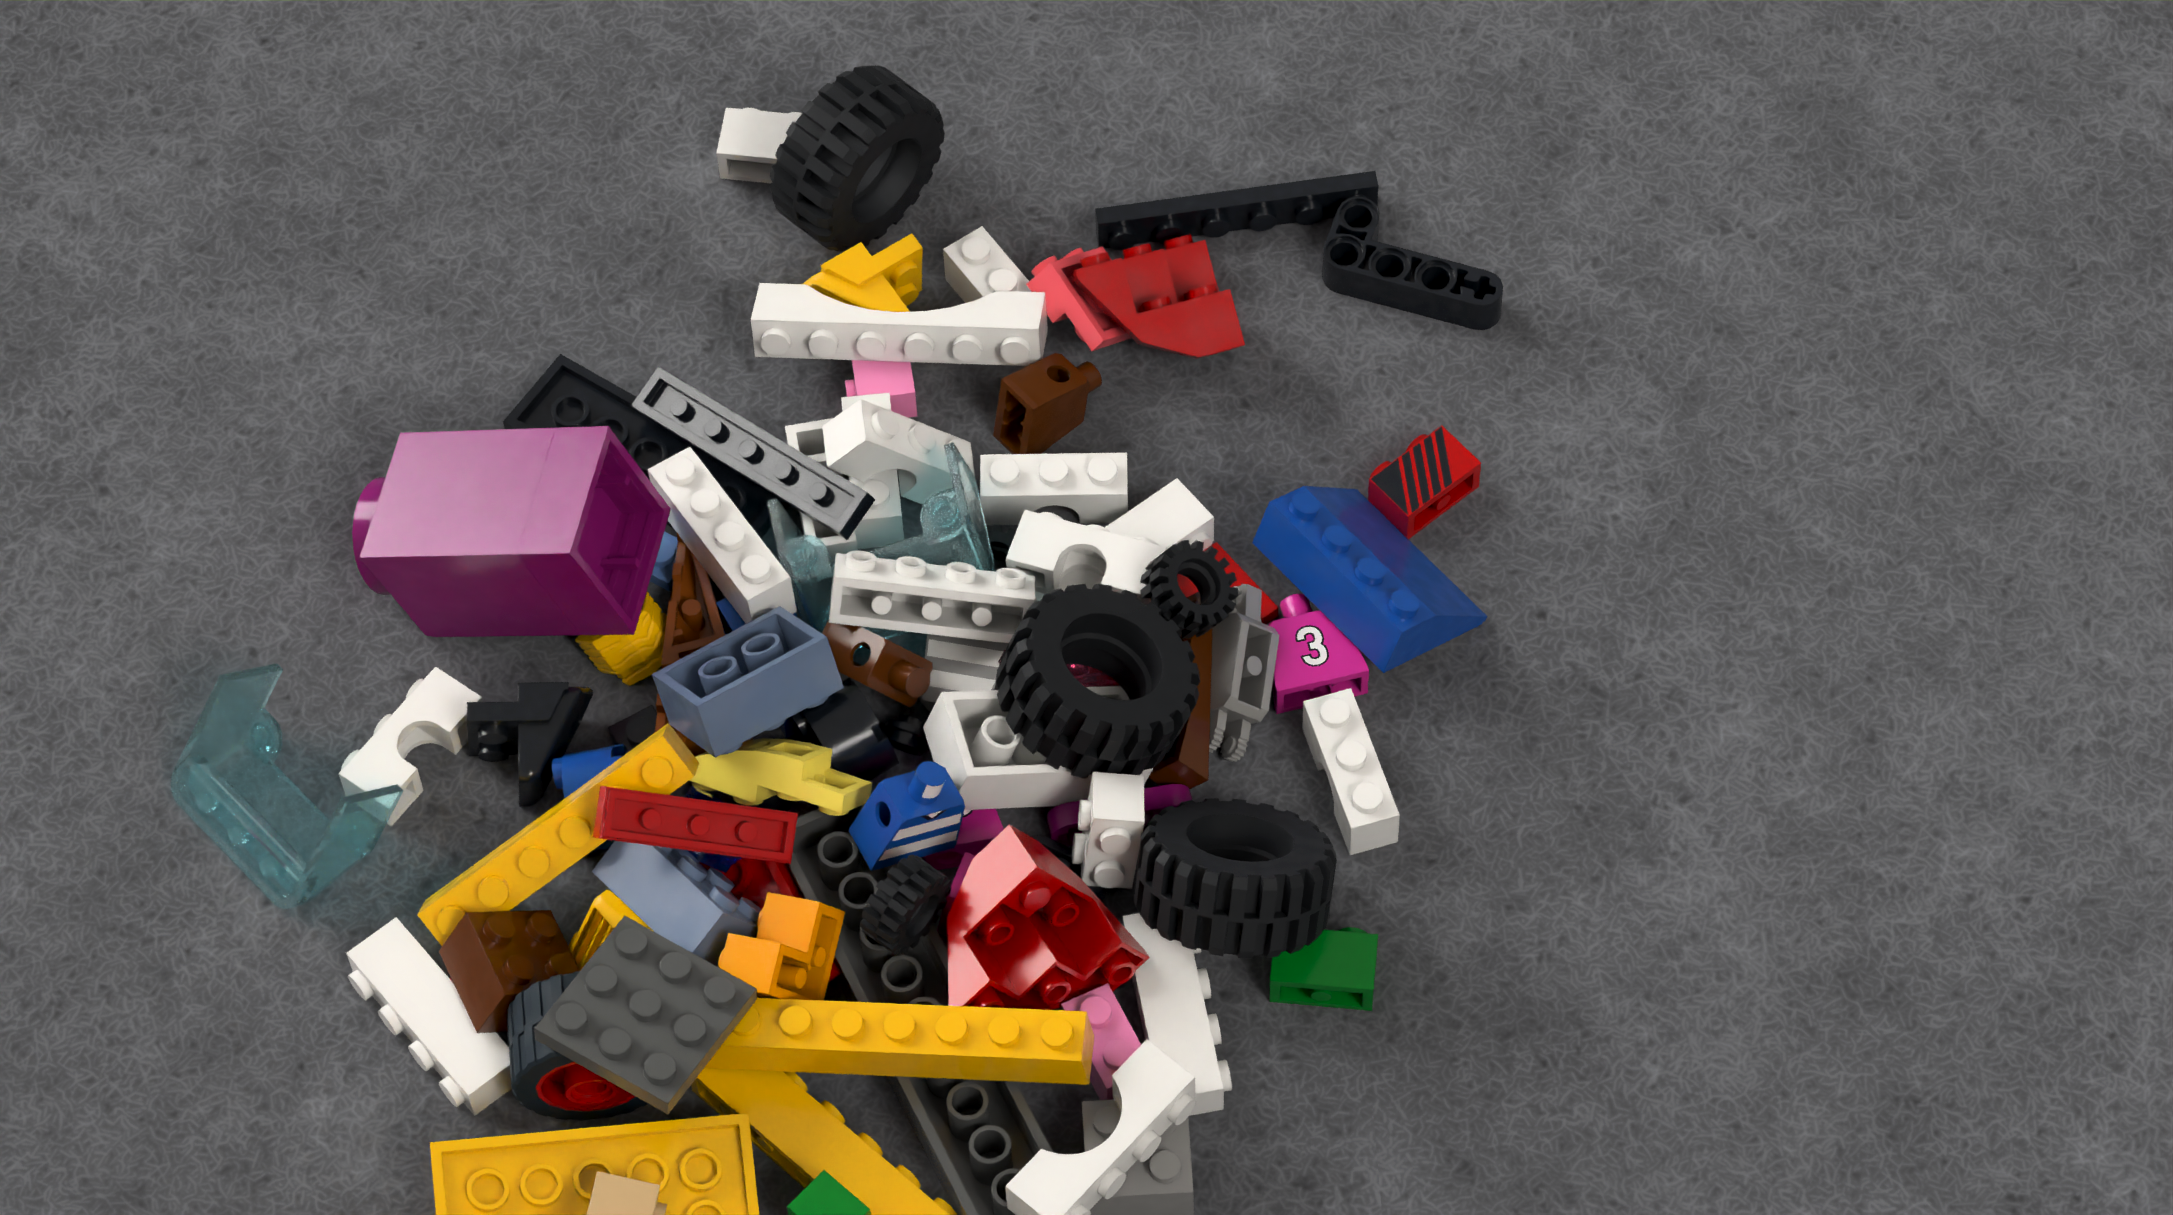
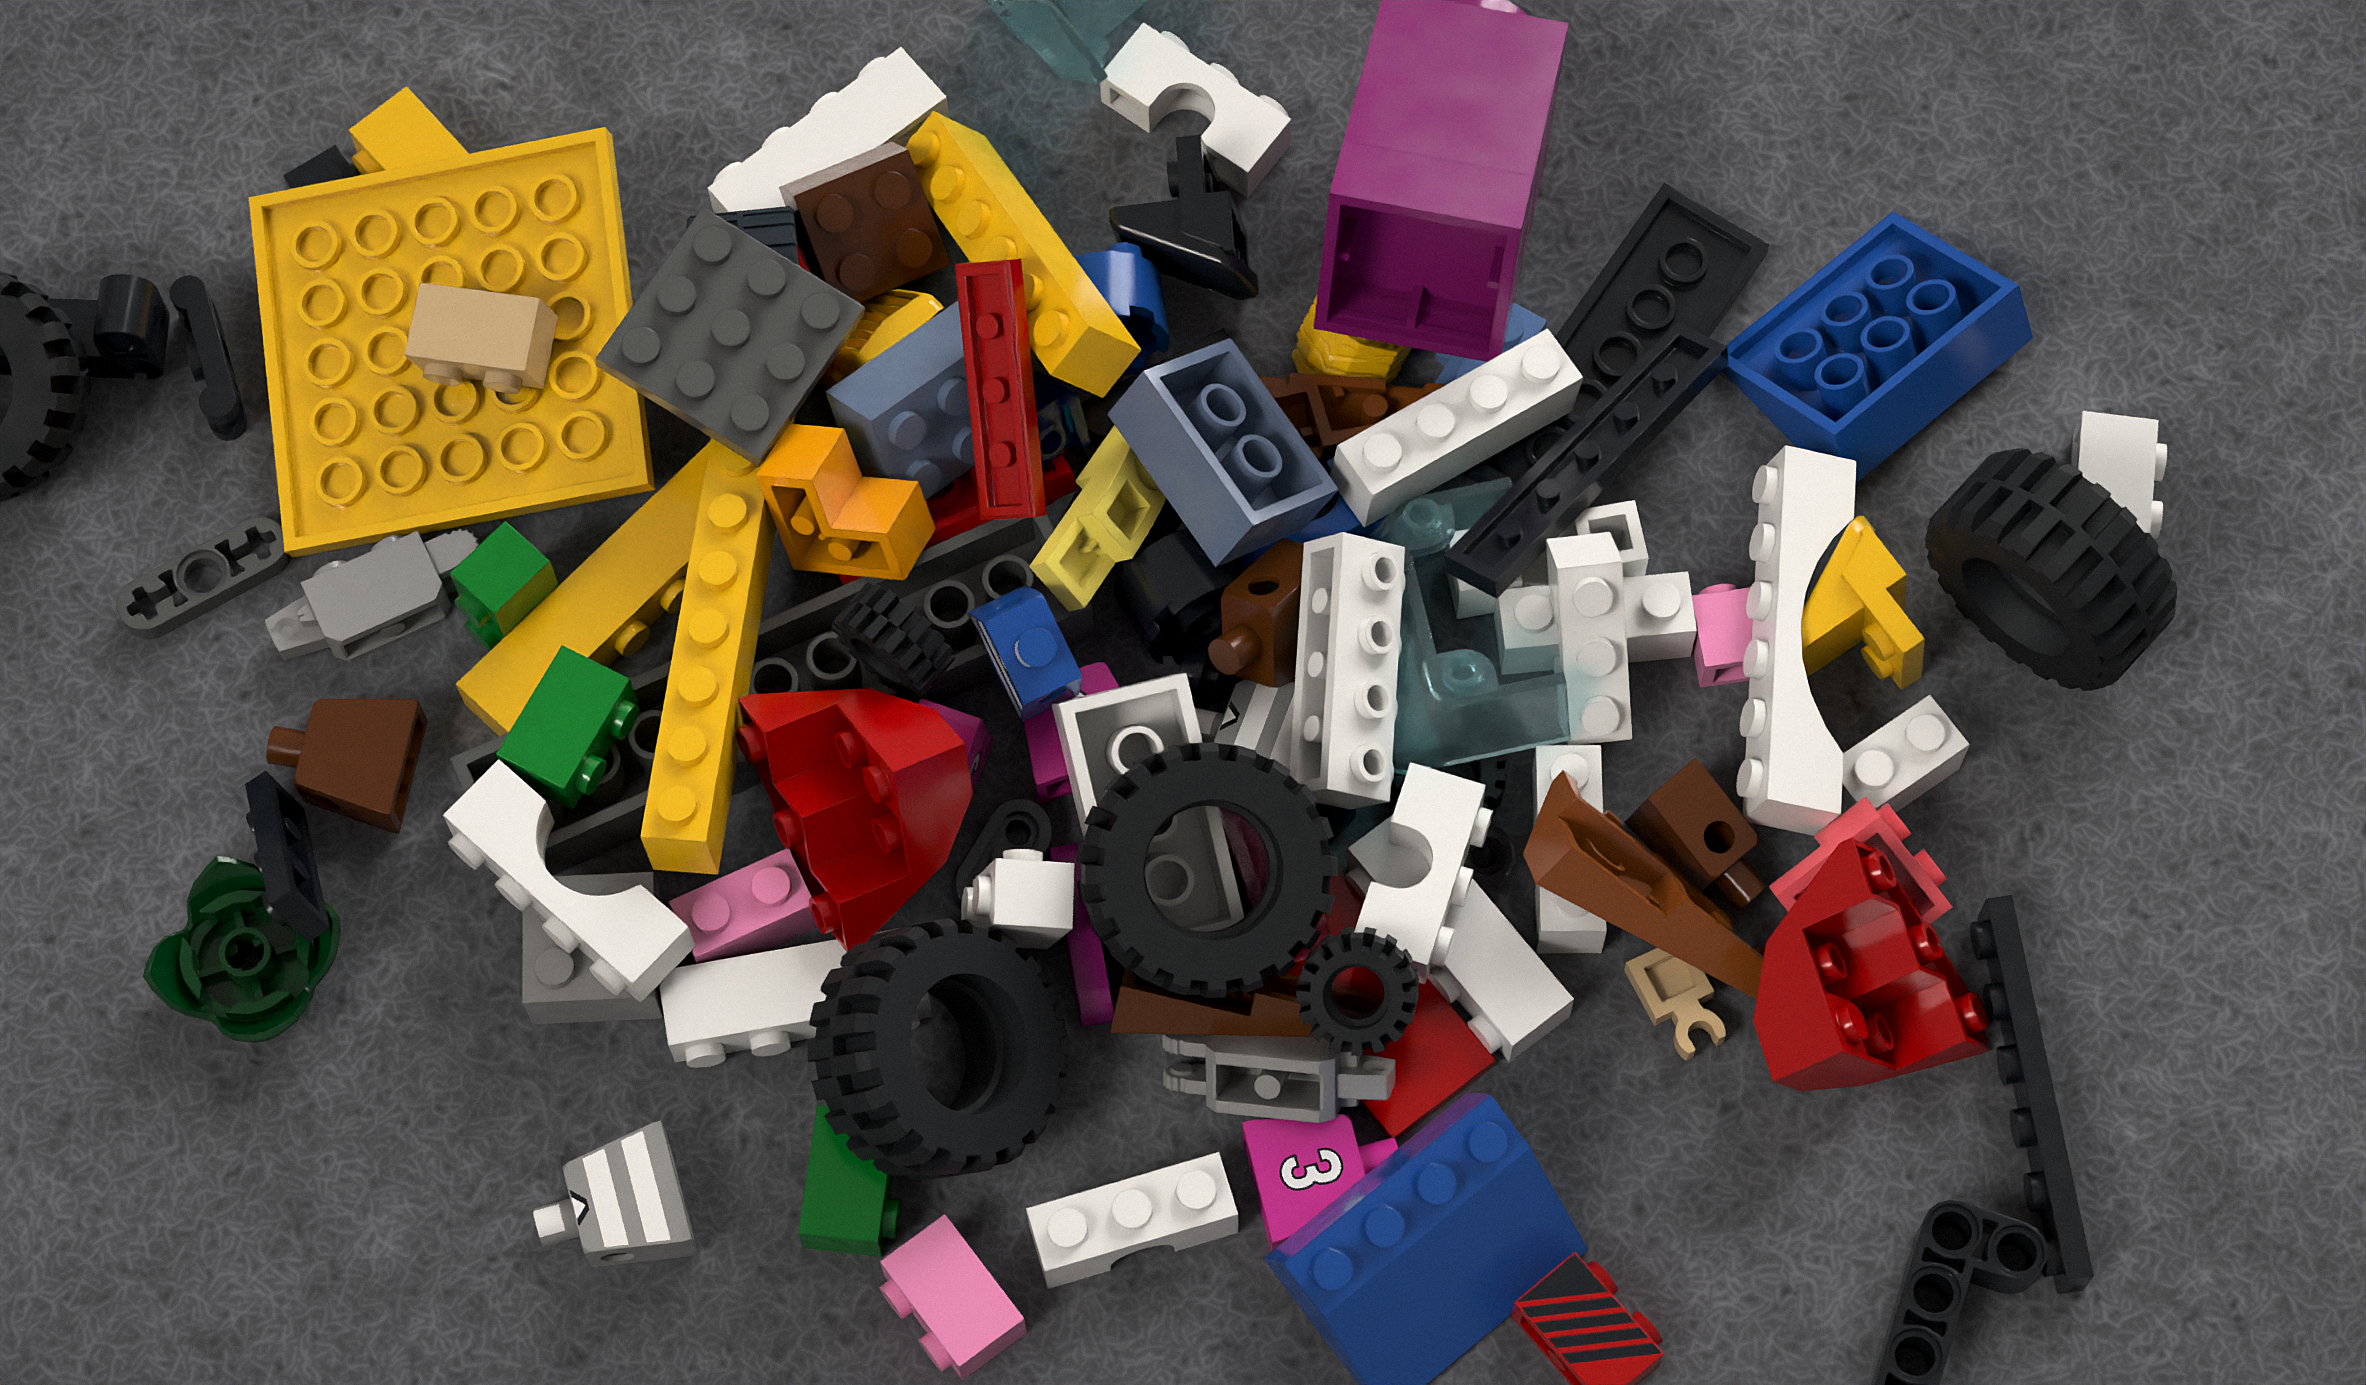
camera: 90 degrees right, 10 degrees up
(645, 288) = (1878, 343): none -> blue slope
(969, 1148) = (569, 727): none -> green brick
(1099, 430) = (1617, 878): none -> dark orange wedge
(1160, 431) = (1675, 992): none -> tan plate
(1345, 1127) = (622, 1203): none -> light grey torso
(1414, 894) = (951, 1298): none -> bright pink brick

